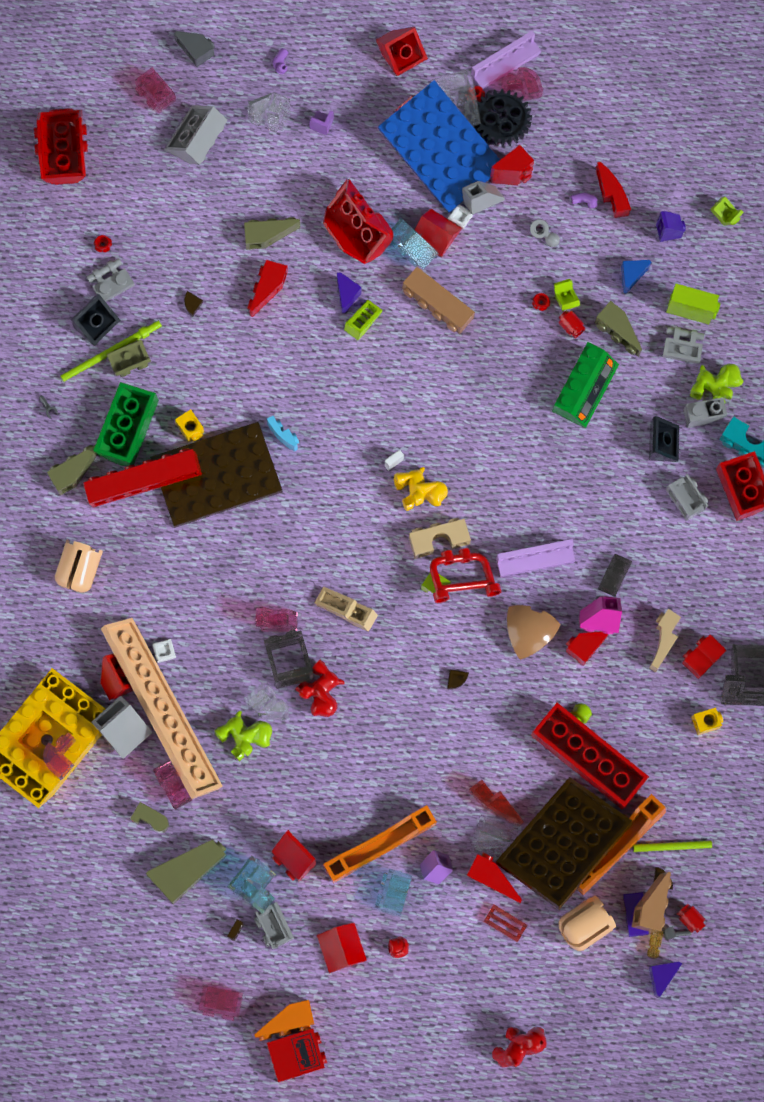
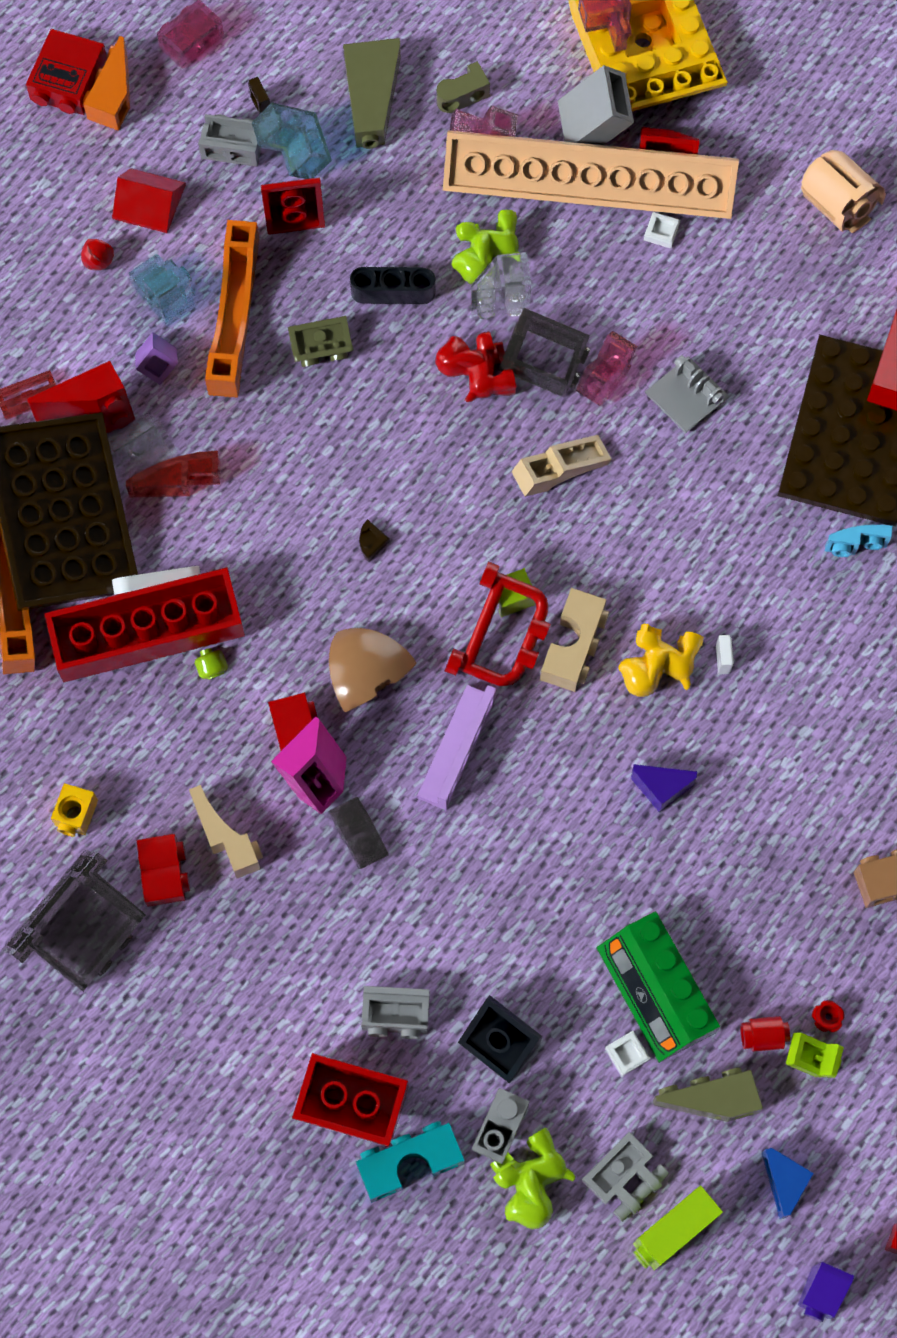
camera: 130 degrees right, 5 degrees down
(257, 573) = (686, 394): none -> light grey hinge
(295, 763) = (380, 277): none -> black beam
(364, 784) = (319, 340): none -> olive bracket
(483, 445) = (662, 784): none -> dark purple slope
(561, 768) = (136, 582): none -> white beam
(625, 381) = (627, 1053): none -> white tile

